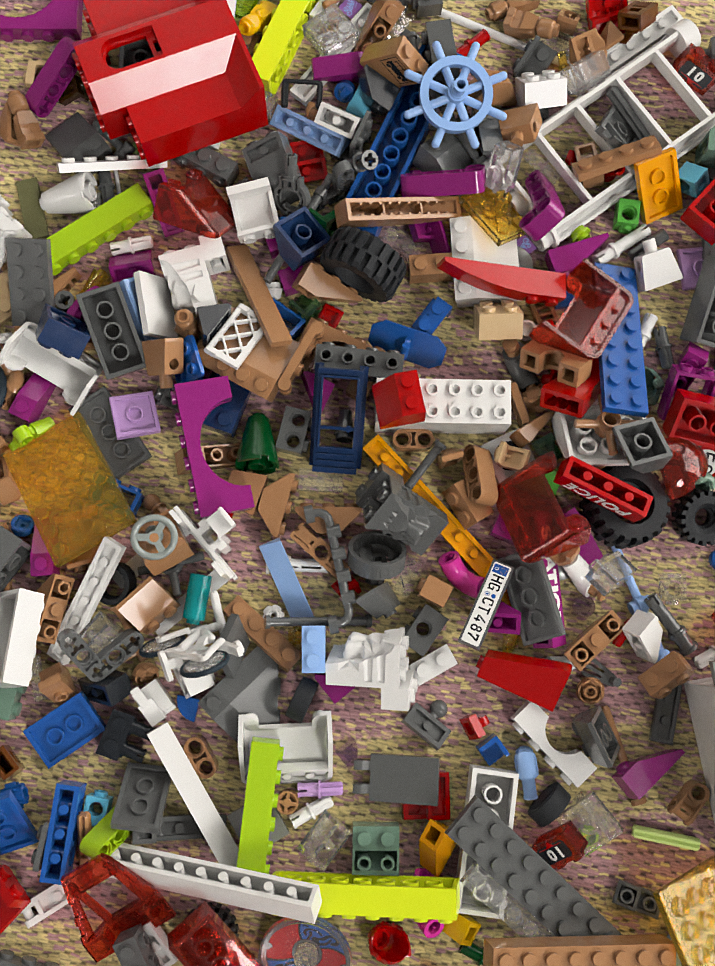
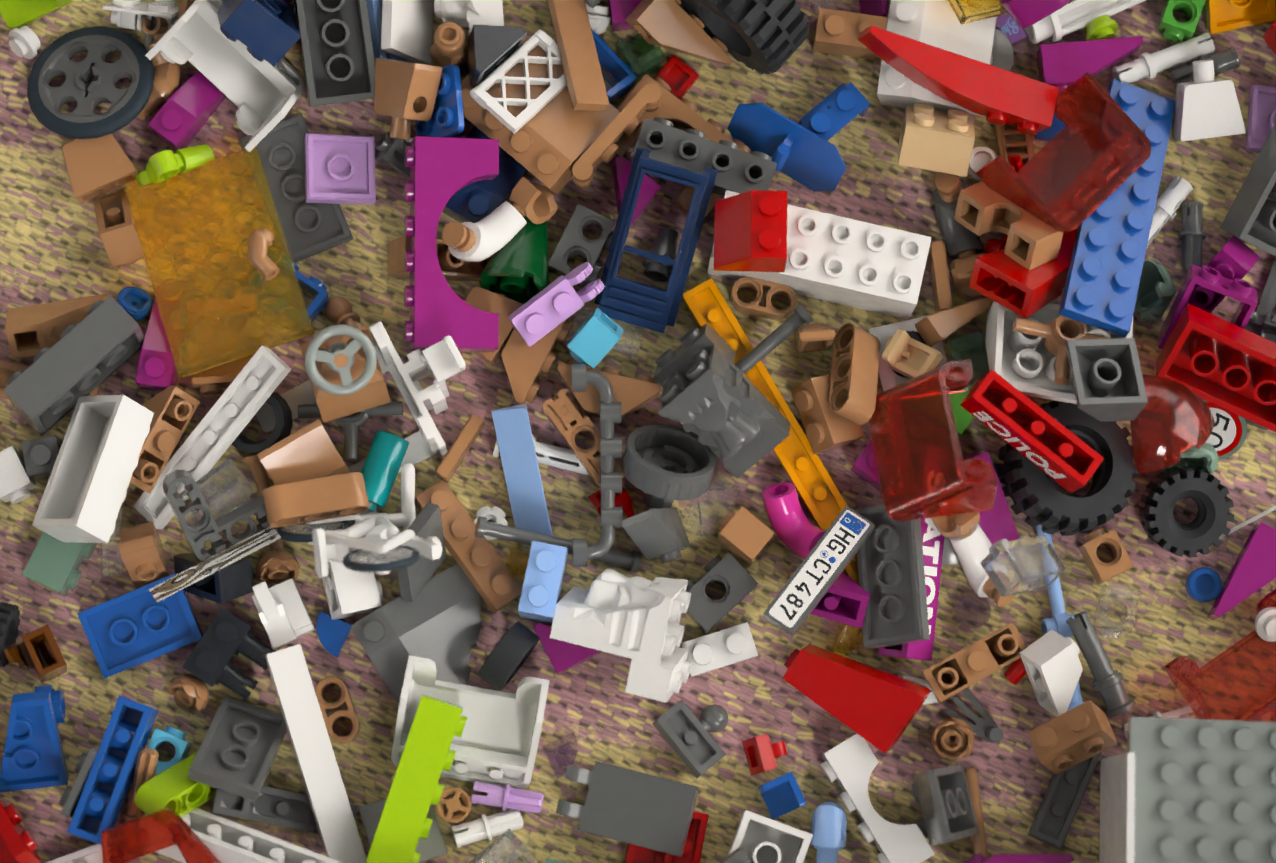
camera: 10 degrees right, 0 degrees up
(90, 480) = (257, 253): none -> medium nougat arm
(102, 682) = (214, 563): none -> sticker
(104, 766) = (189, 692): none -> medium nougat plate
(158, 627) = (315, 499): none -> medium nougat beam
(229, 441) = (484, 238): none -> piece
(244, 572) = (460, 447): none -> medium nougat tile
(284, 471) = (554, 304): none -> lavender hinge
(314, 487) = (594, 338): none -> medium azure brick
(667, 555) = (1120, 560): none -> medium nougat brick

